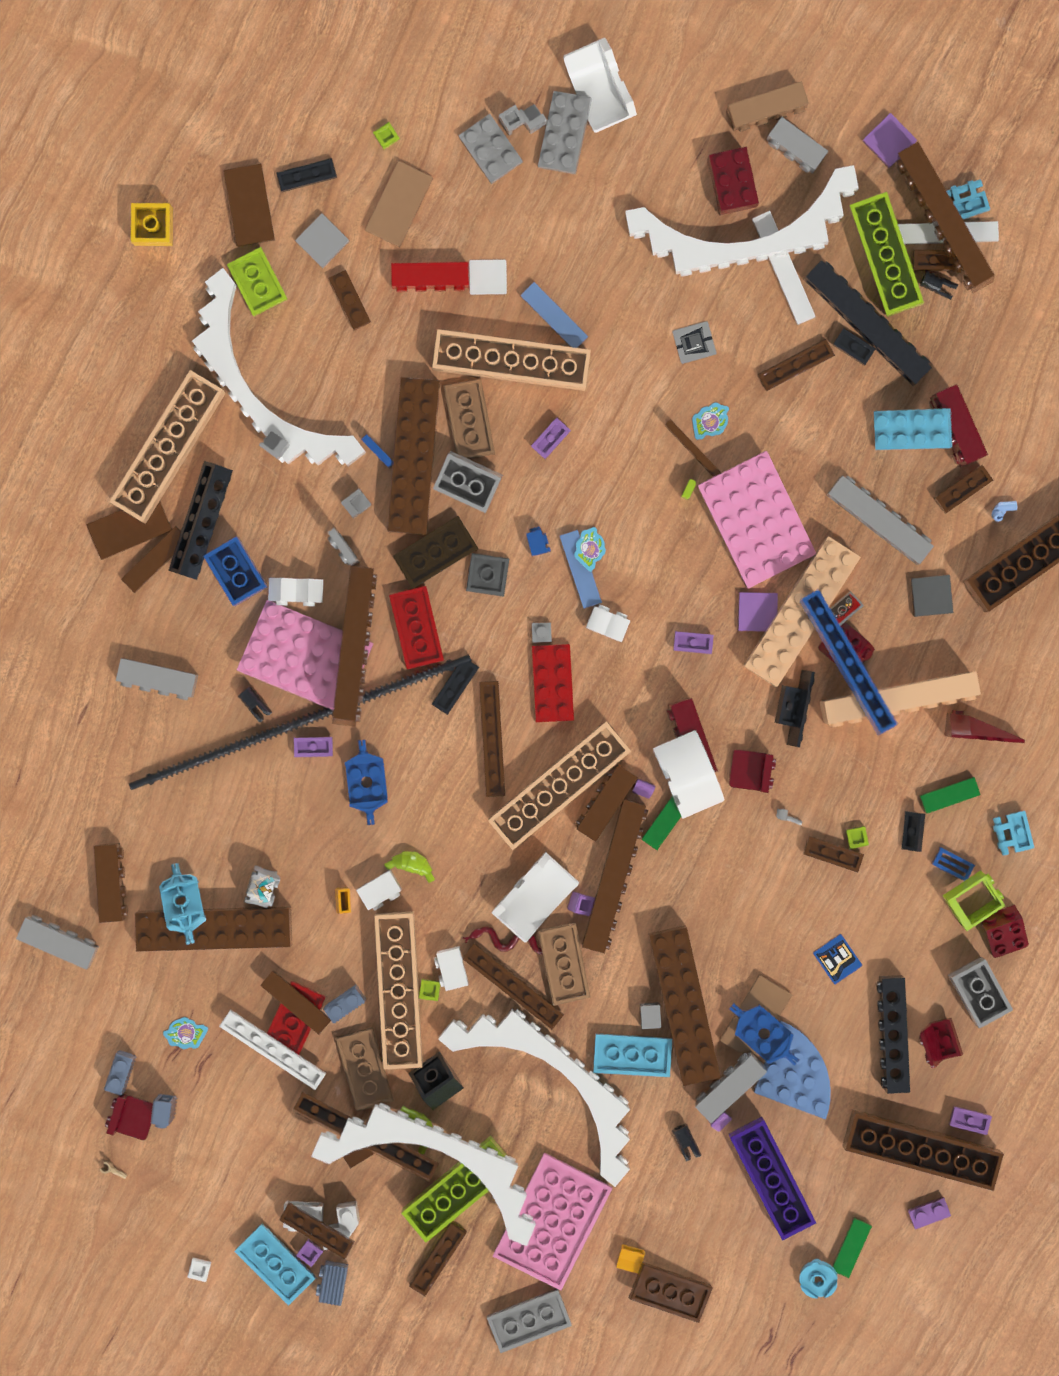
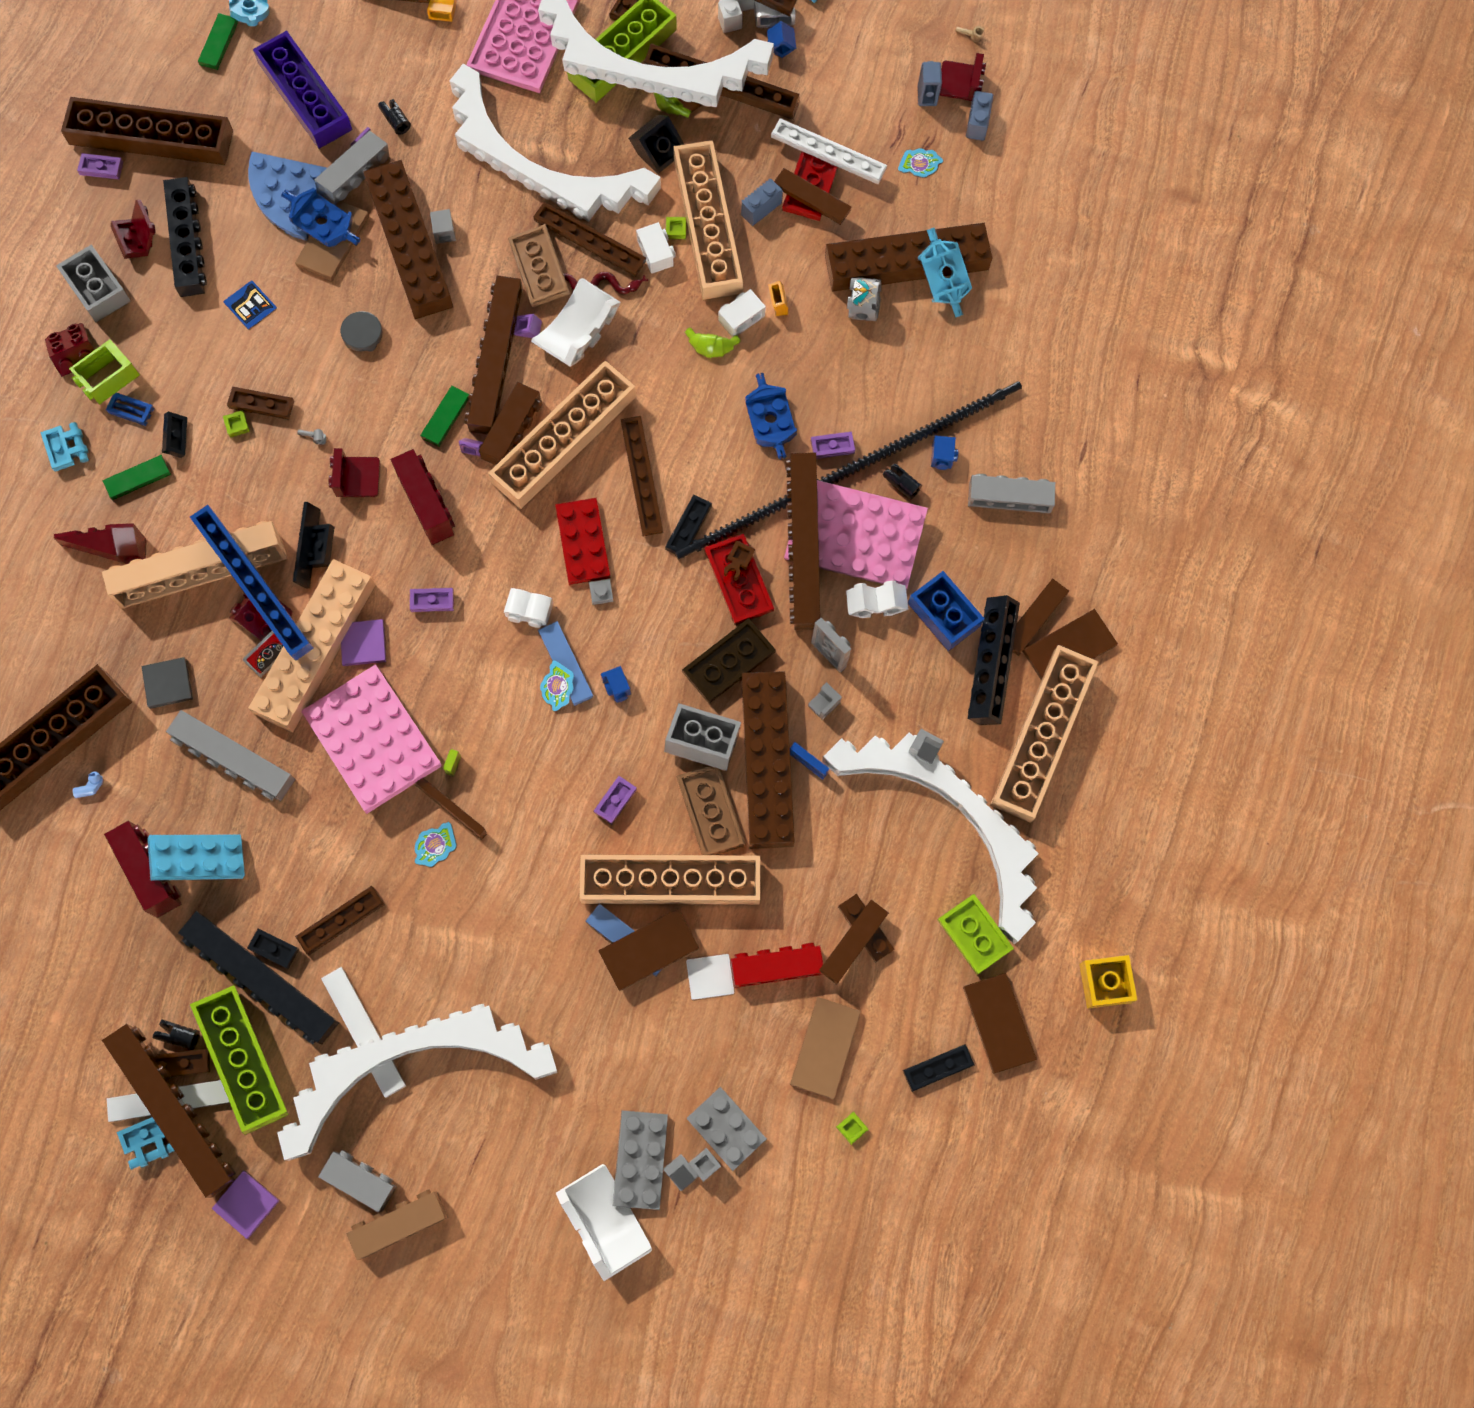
camera: 170 degrees right, 15 degrees down
(57, 942) = (1066, 227): light grey brick -> none
(110, 882) = (1023, 289): reddish brown brick -> none
(212, 725) = (943, 452): none -> blue brick
(301, 1180) = (783, 38): none -> blue brick
(322, 240) = (908, 992): light grey tile -> none
(362, 285) = (853, 942): none -> reddish brown tile
(364, 1069) = (733, 148): medium nougat tile -> none
(412, 644) = (739, 558): none -> reddish brown plate
(487, 574) = (668, 645): dark grey tile -> none
(537, 303) = (648, 949): none -> reddish brown tile
(632, 1055) = (457, 188): medium azure plate -> none
(690, 774) = (422, 456): white panel -> none
(694, 342) = (461, 932): sticker -> none
(733, 180) = (431, 1126): dark red brick -> none
(735, 915) = (361, 331): none -> dark grey tile
(929, 1213) = (139, 80): medium lavender plate -> none
(963, 489) = (136, 801): reddish brown plate -> none

